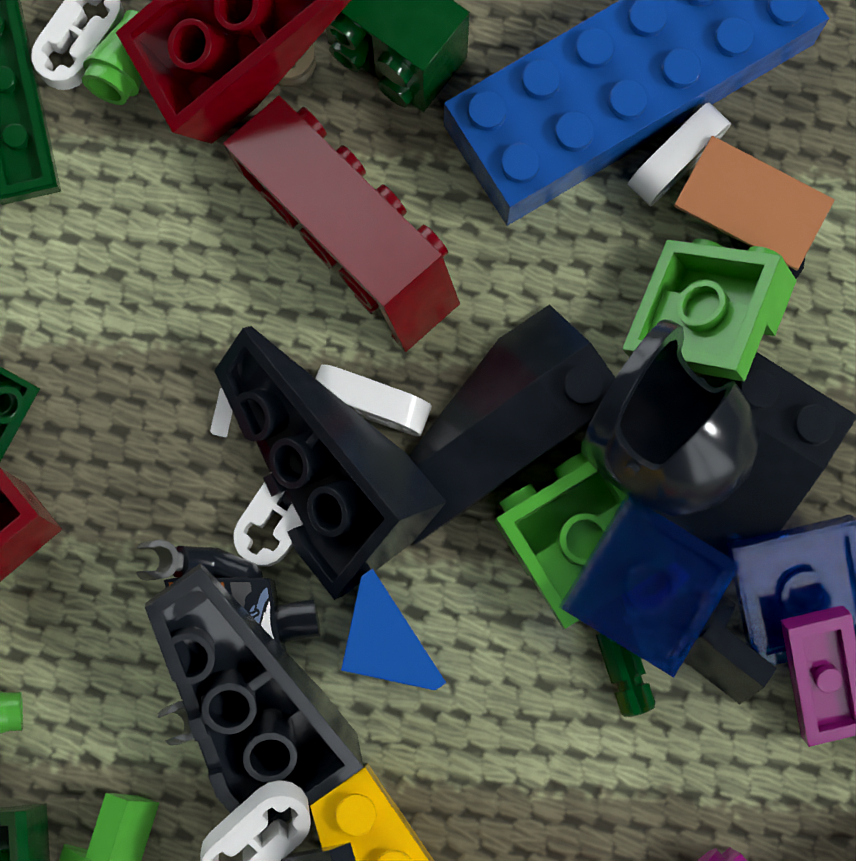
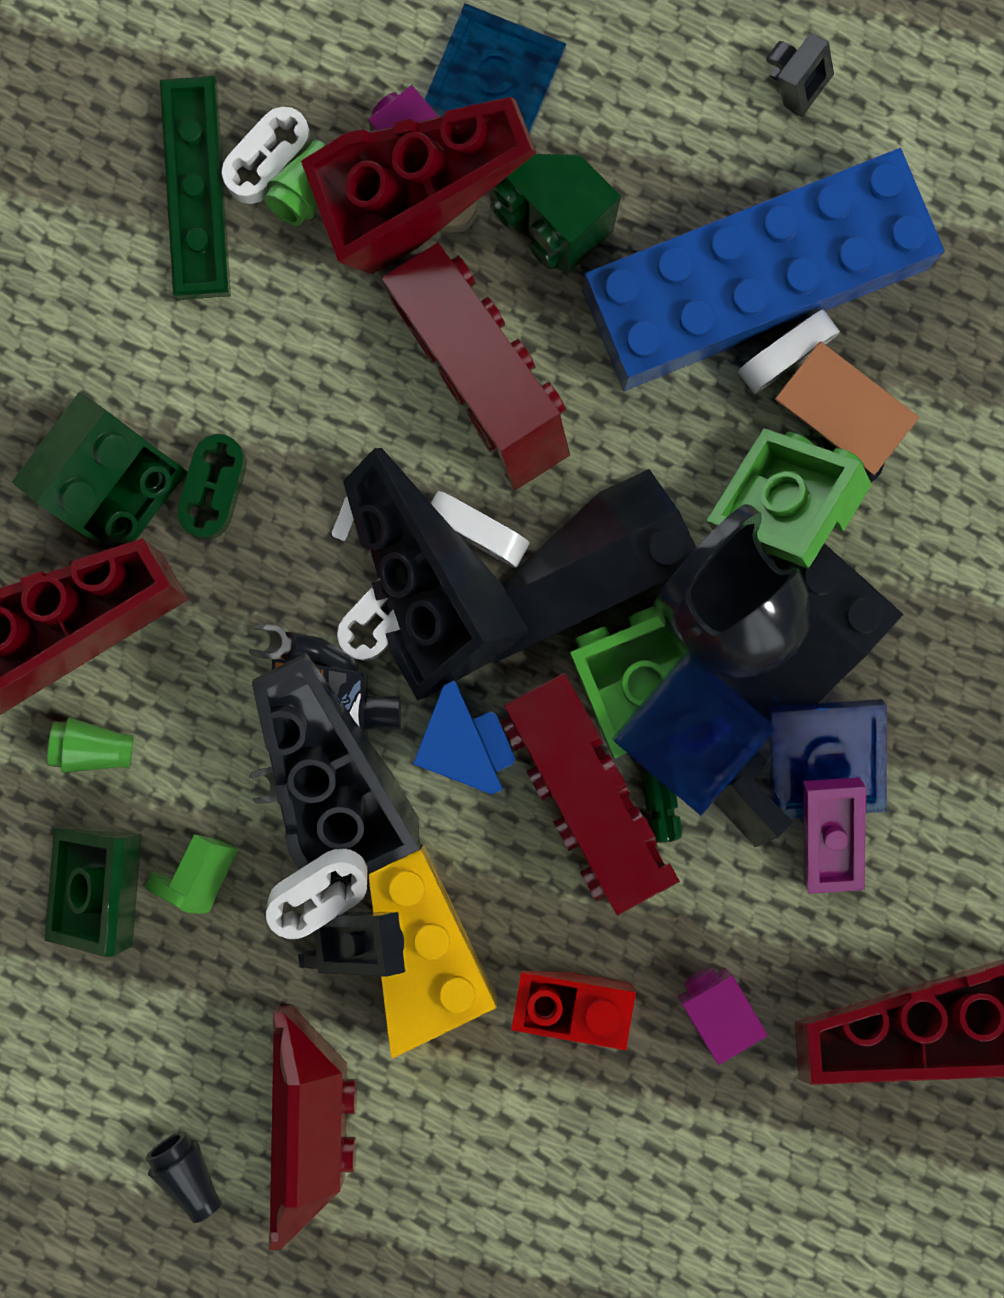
camera: 10 degrees right, 5 degrees up
(55, 399) = (199, 482): none -> dark green beam
(428, 631) = (494, 741): none -> blue tile
(543, 675) = (588, 794): none -> dark red wedge

